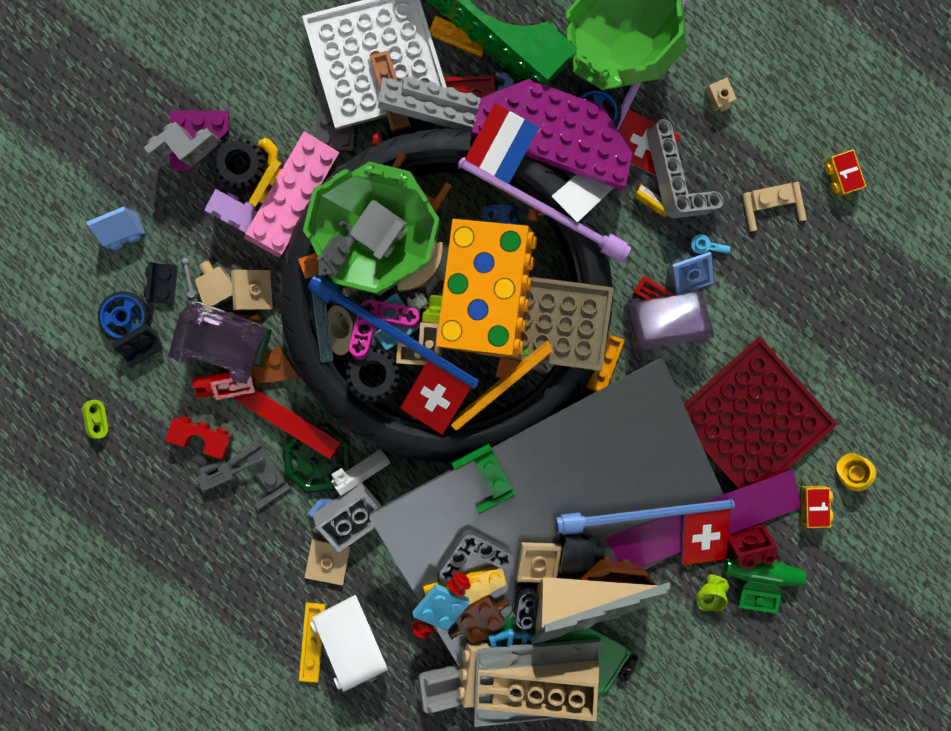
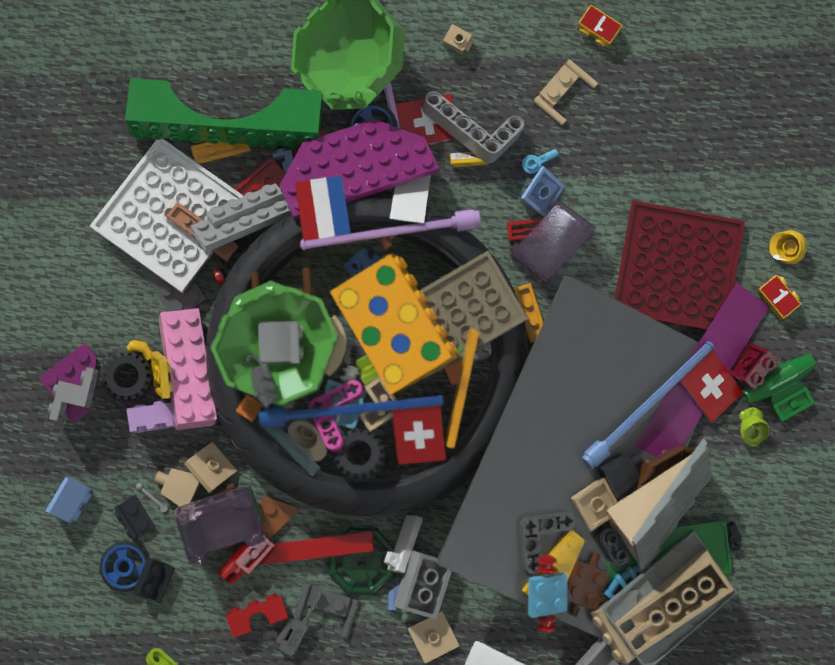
camera: 40 degrees left, 5 degrees down
(492, 475) = (506, 460): green plate -> none

